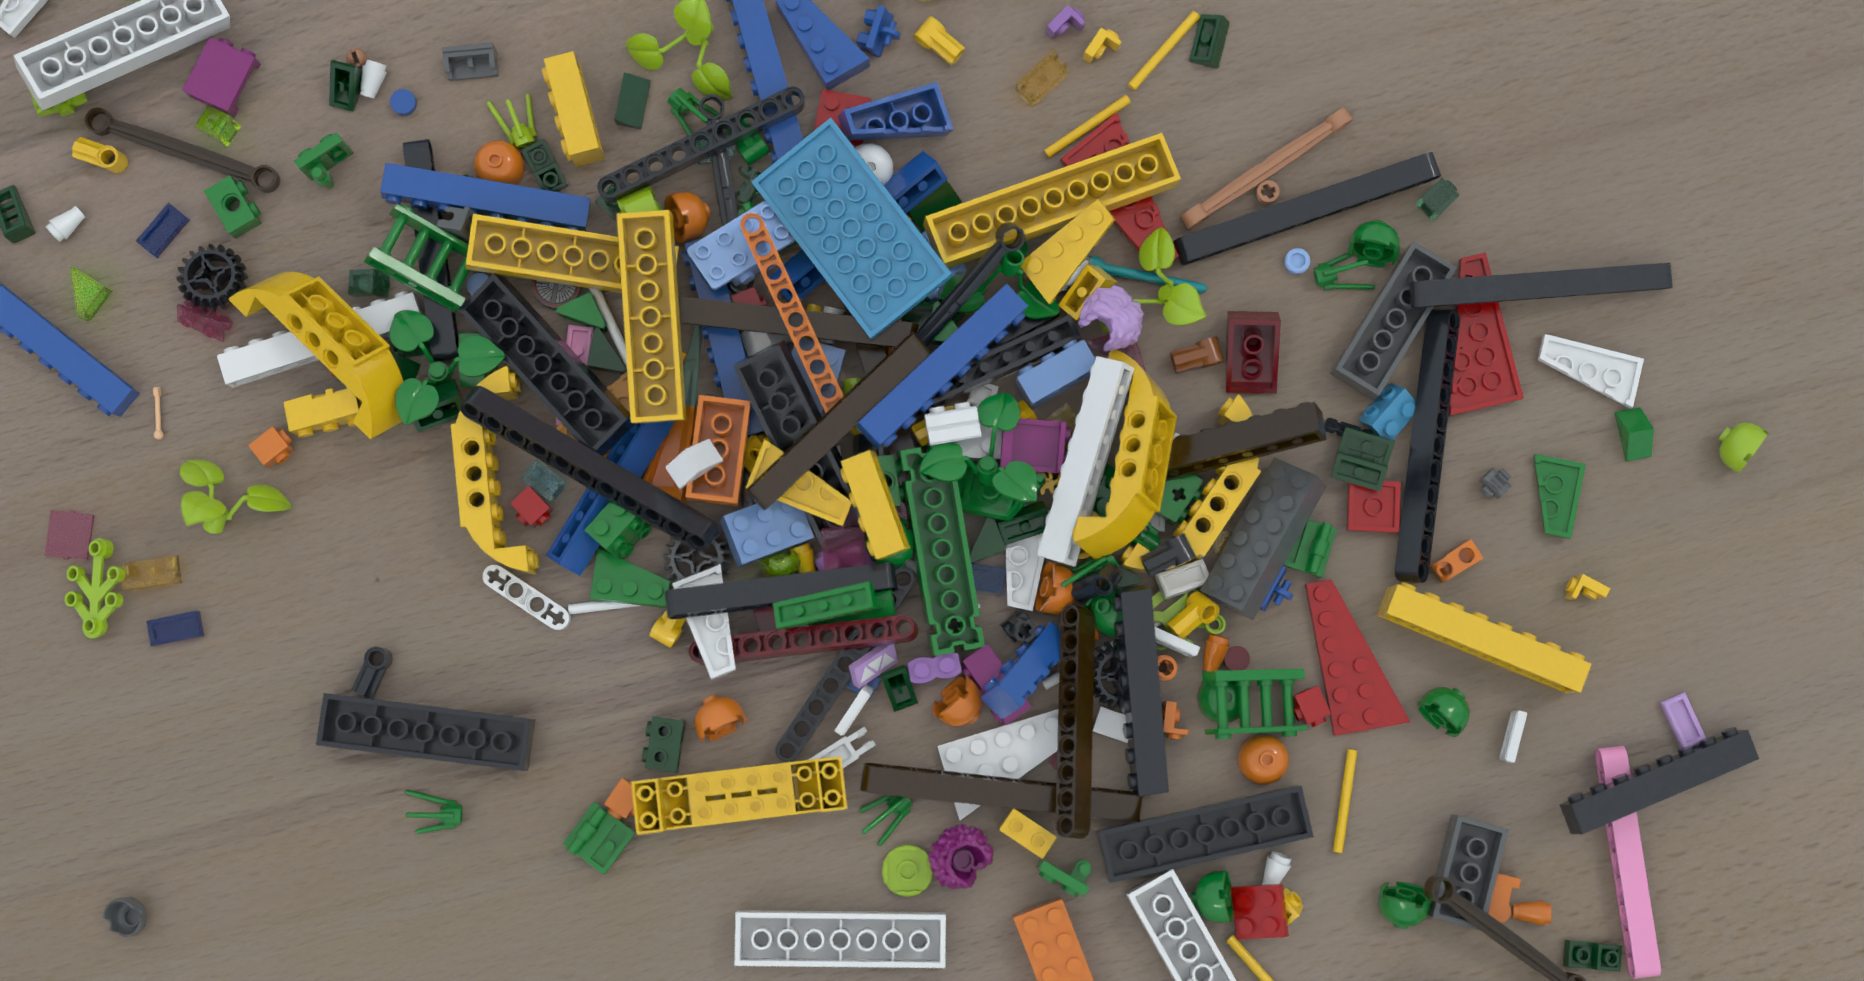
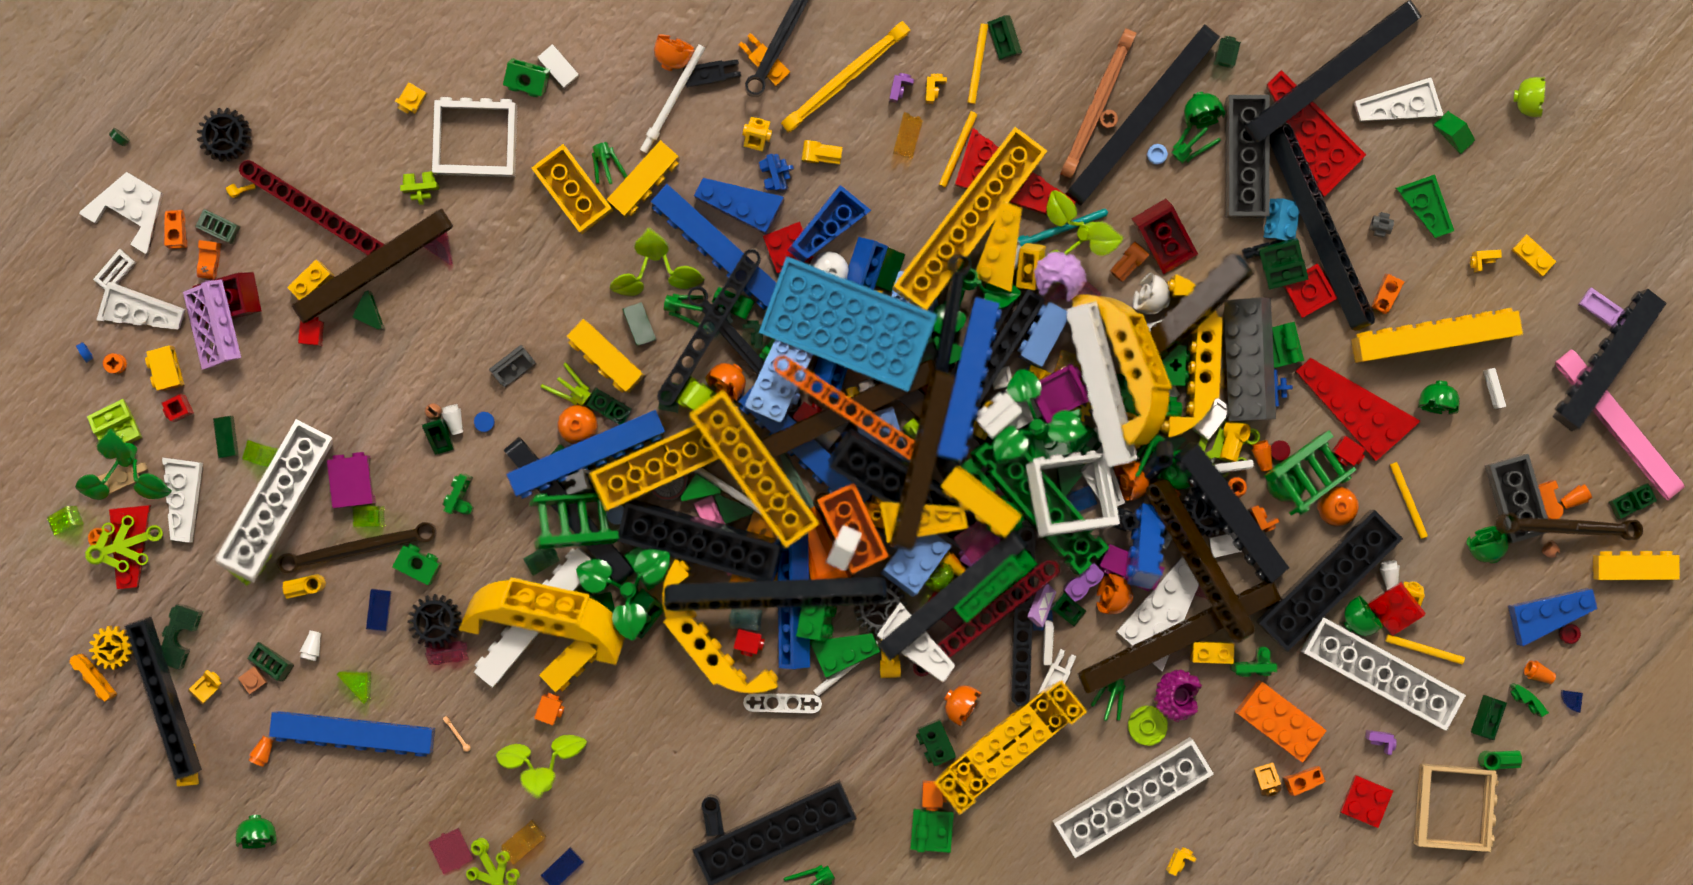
camera: 25 degrees left, 5 degrees up
(1021, 576) = (1104, 485): none -> white window
(1171, 553) = (1197, 410): black piece -> none
(1200, 406) = (1153, 295): none -> white cylinder
(1469, 952) = (1550, 549): none -> nougat hinge
(1642, 619) = (1534, 255): none -> yellow plate

